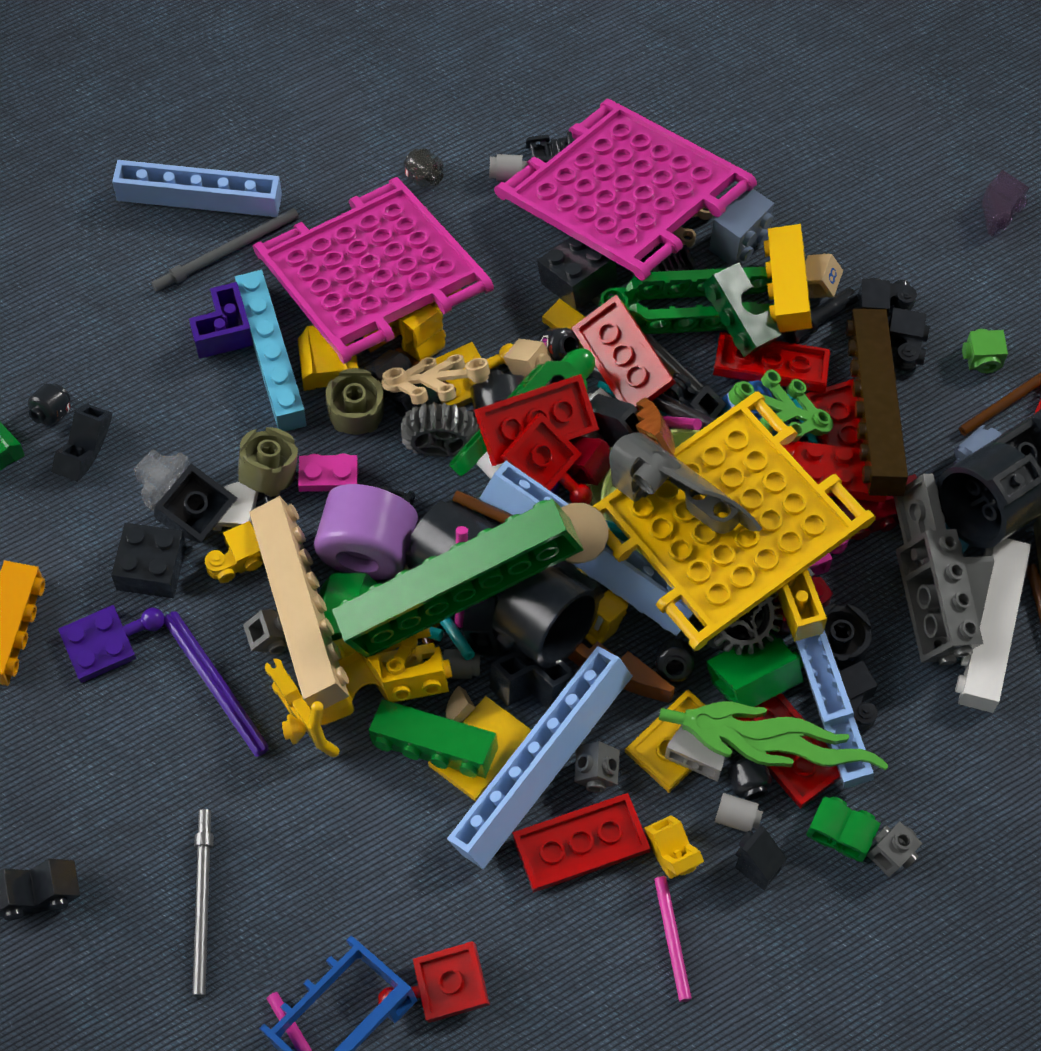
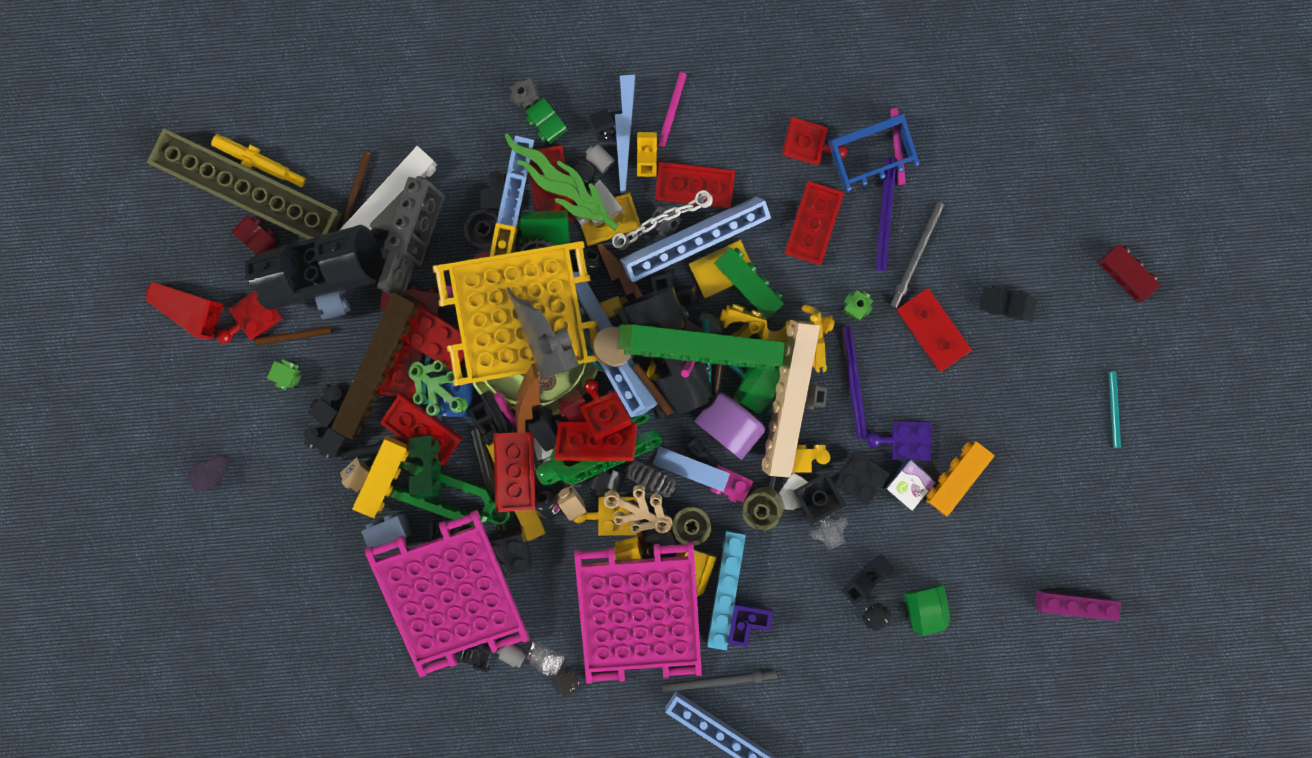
camera: 155 degrees left, 25 degrees up
(74, 583) = (909, 484): none -> tile
(130, 807) = (933, 330): none -> red plate
(259, 782) = (851, 307): none -> bright green brick
(275, 934) = (885, 216): none -> dark purple axle
(379, 872) = (814, 223): none -> red plate
(390, 466) = (691, 469): none -> light blue slope
(459, 705) = (722, 299): tan tile -> none
(463, 177) = (544, 659): none -> clear brick
(561, 797) = (618, 238): none -> white piece
(727, 871) = (623, 127): none -> light blue slope

